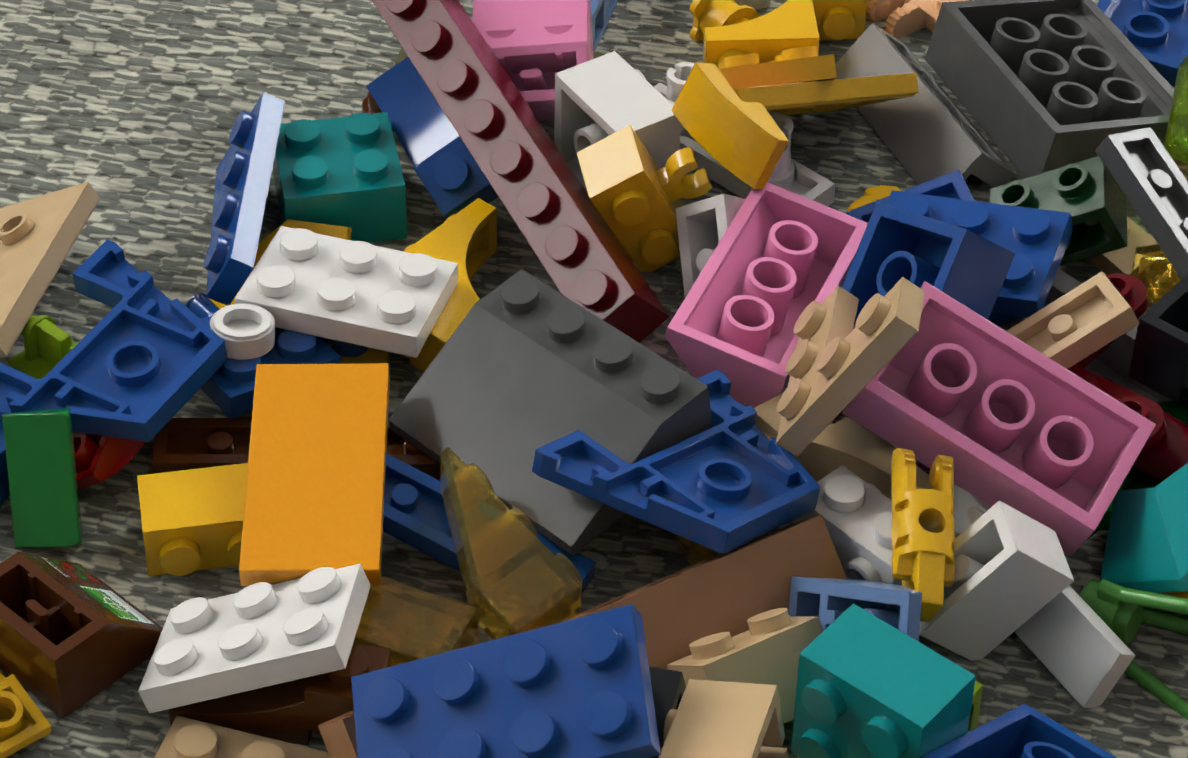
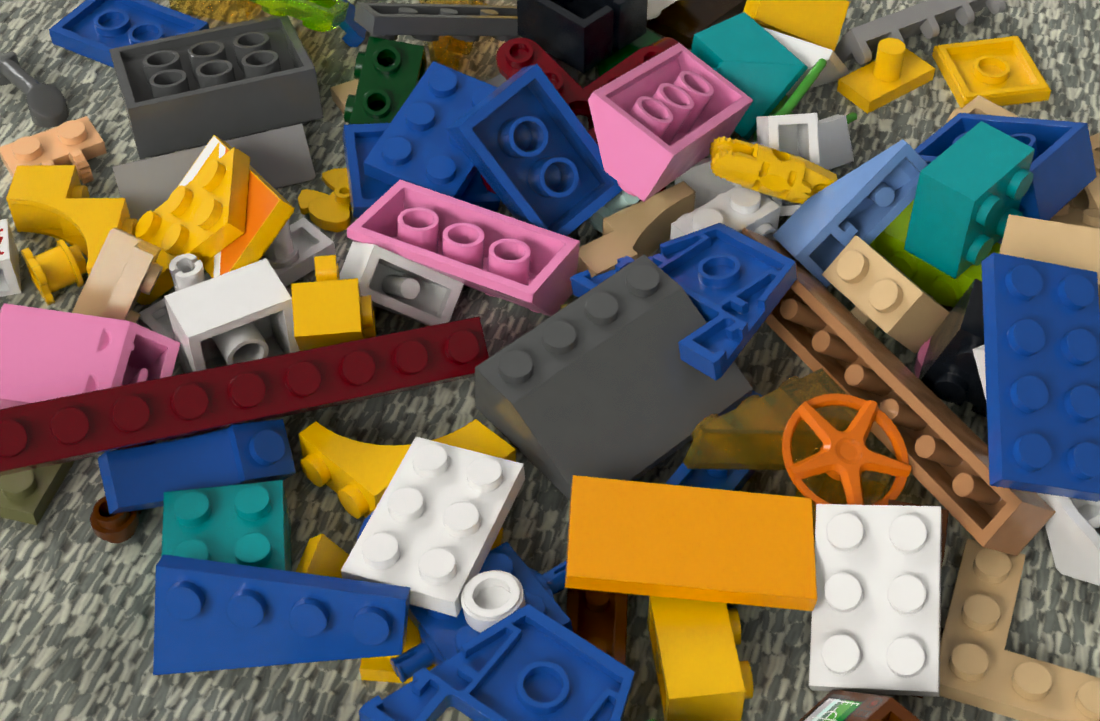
camera: 85 degrees left, 5 degrees up
(441, 597) = (845, 452): none -> orange wheel
(671, 42) = (119, 276): none -> tan bracket
(730, 130) = (310, 220): yellow slope -> none
(838, 360) = (652, 197): tan plate -> none
(1078, 322) = (573, 66): tan plate -> none

